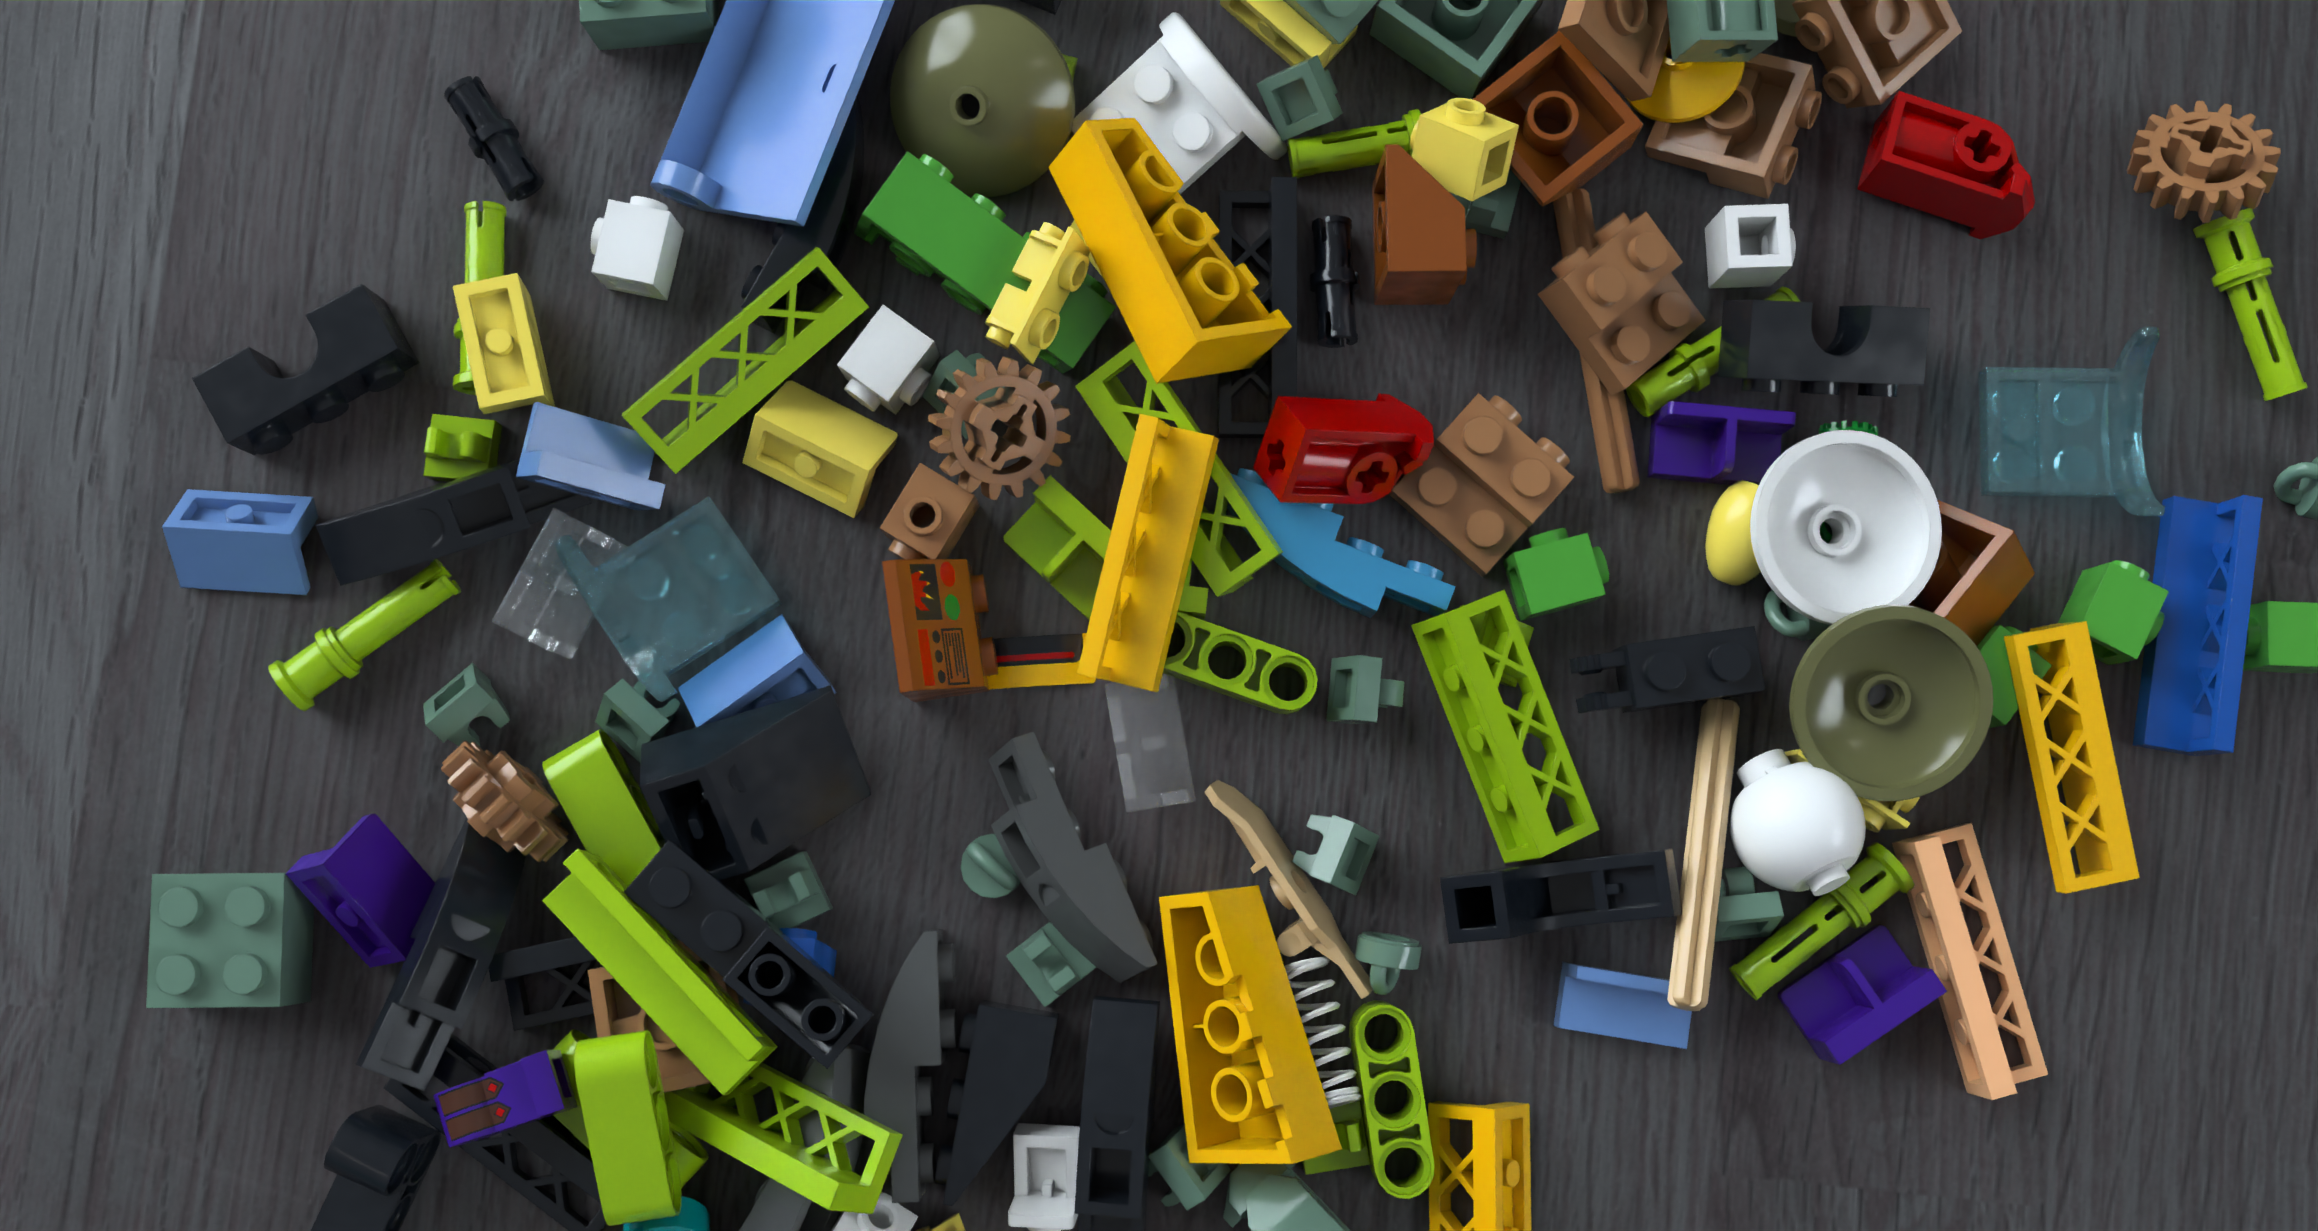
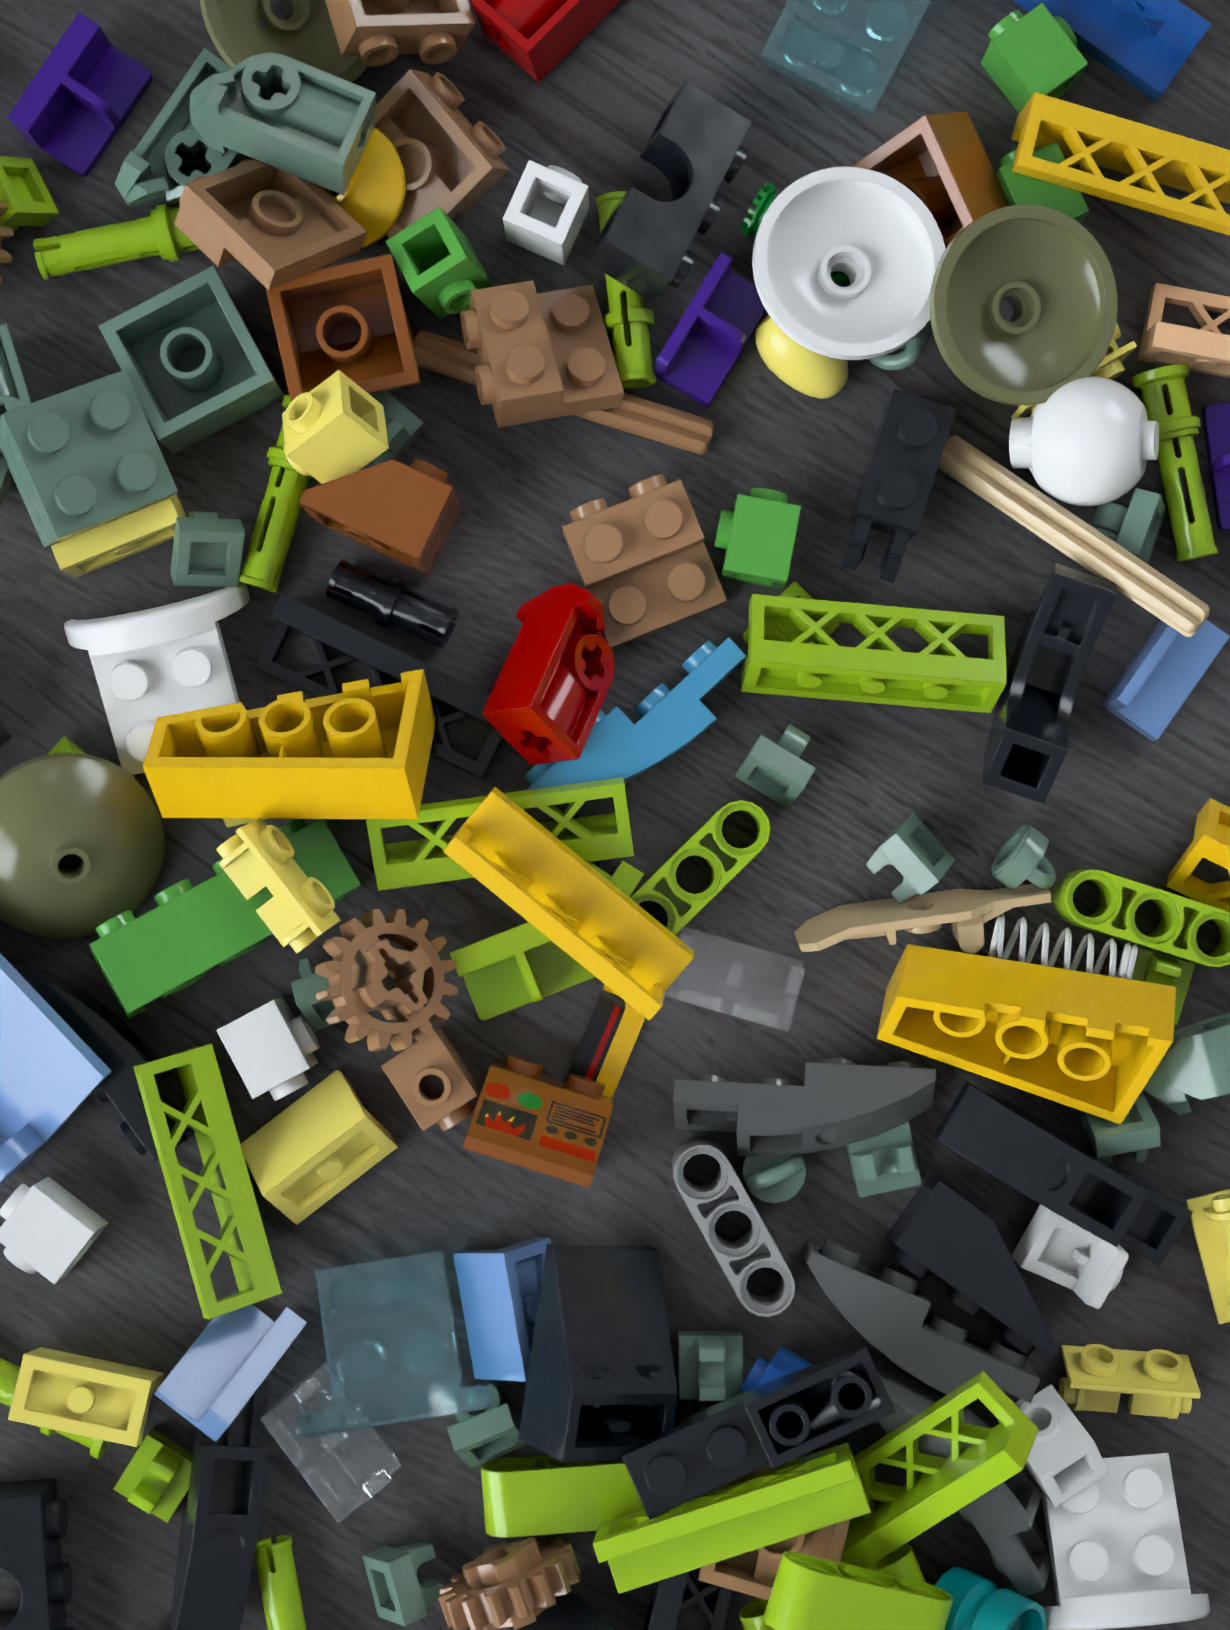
camera: 65 degrees left, 5 degrees up
(896, 866) = (743, 1255): none -> light grey beam
(1655, 173) = (438, 263): none -> bright green brick

